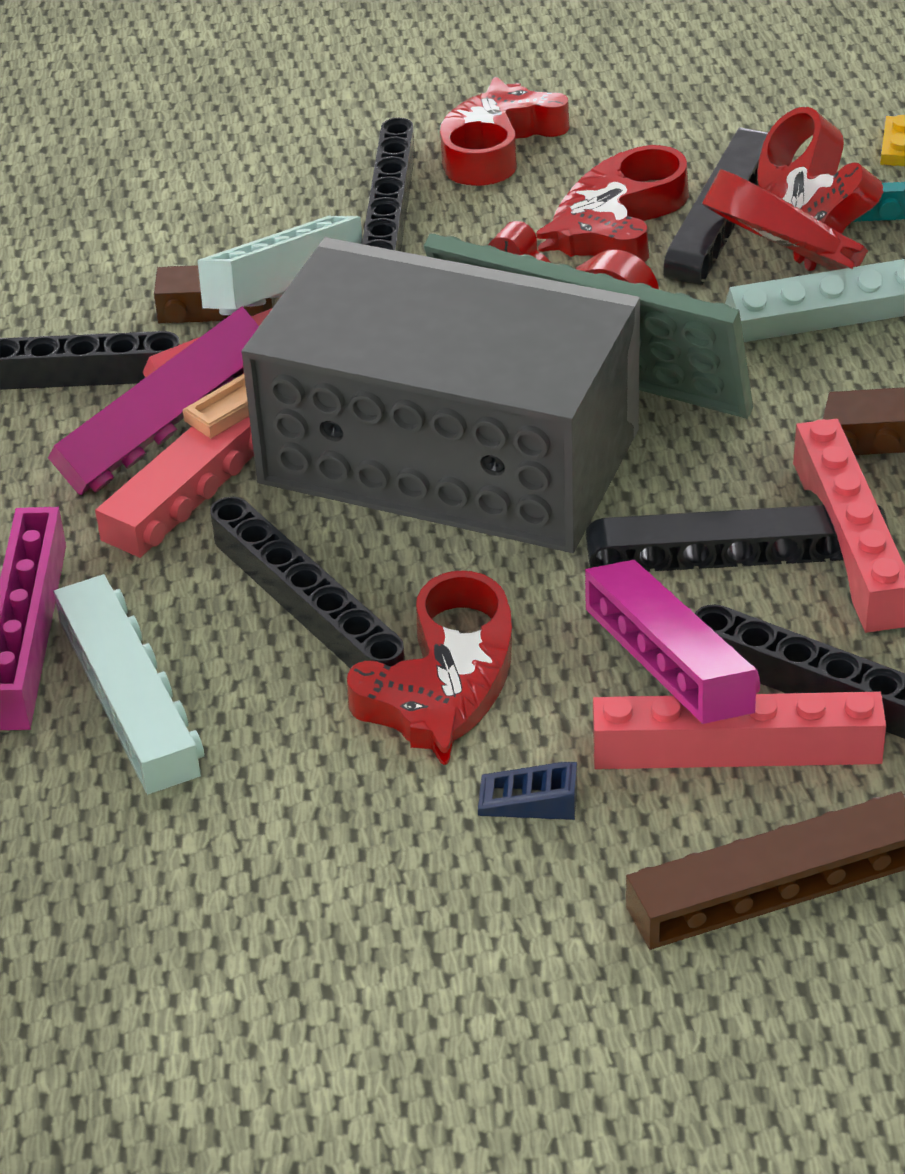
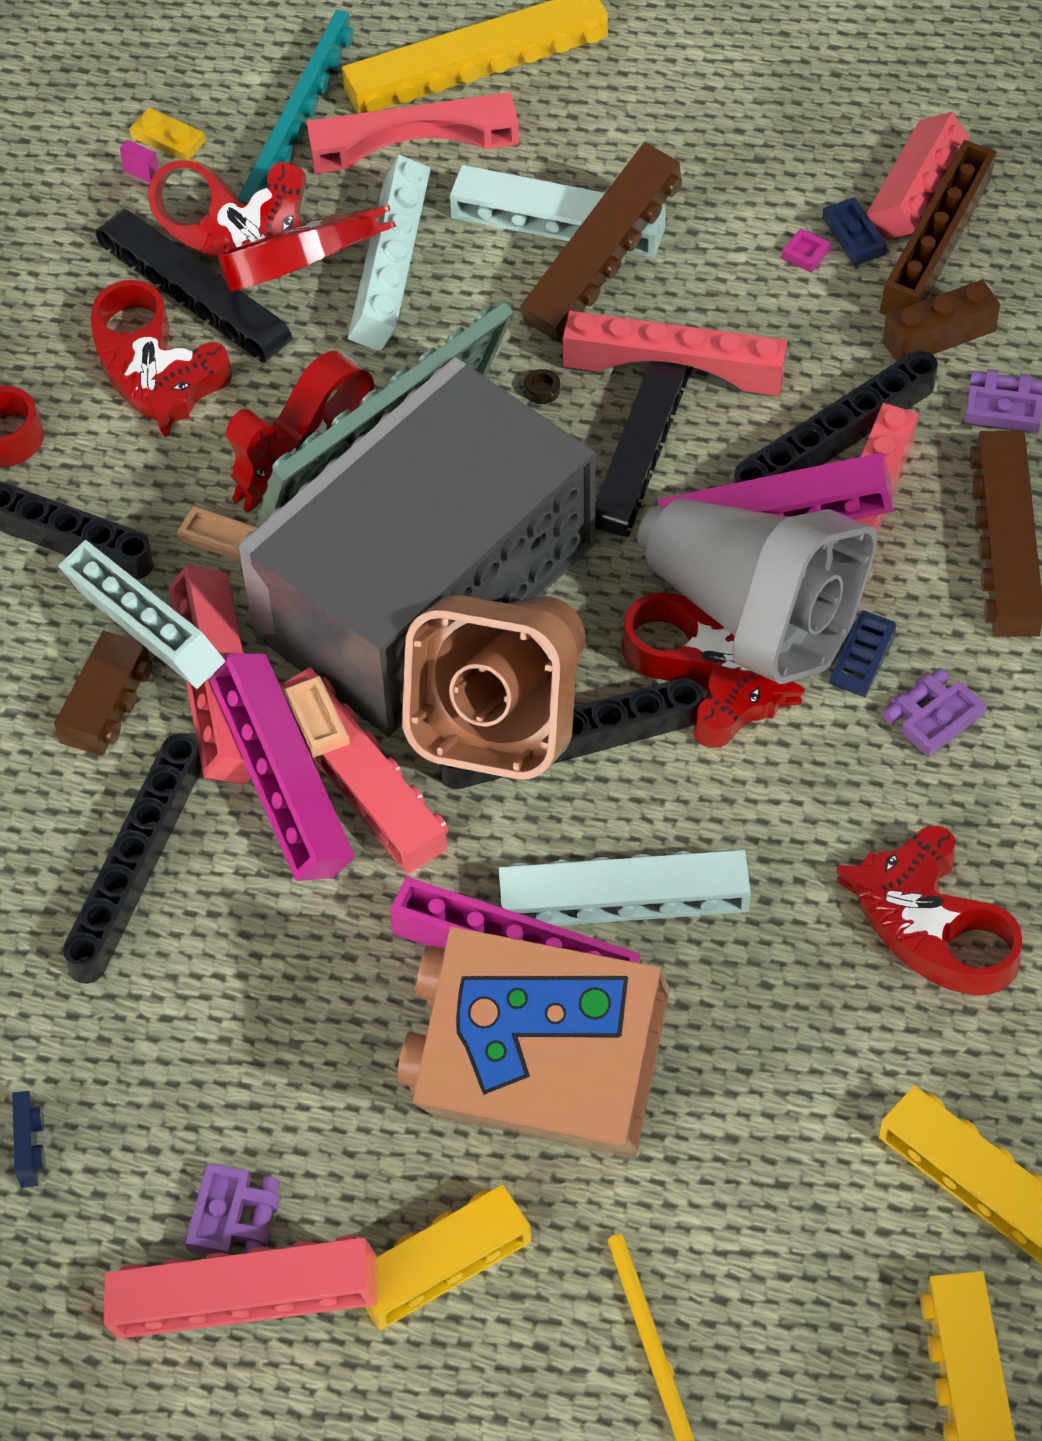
camera: 70 degrees left, 15 degrees up
(171, 928) = (916, 921): none -> red animal
(307, 479) = (492, 683): none -> nougat cone
(475, 882) = (942, 718): none -> medium lavender plate
(521, 649) = (766, 577): none -> light grey cone
(756, 456) = (542, 386): none -> dark brown tile
(847, 127) = (138, 161): none -> dark pink tile

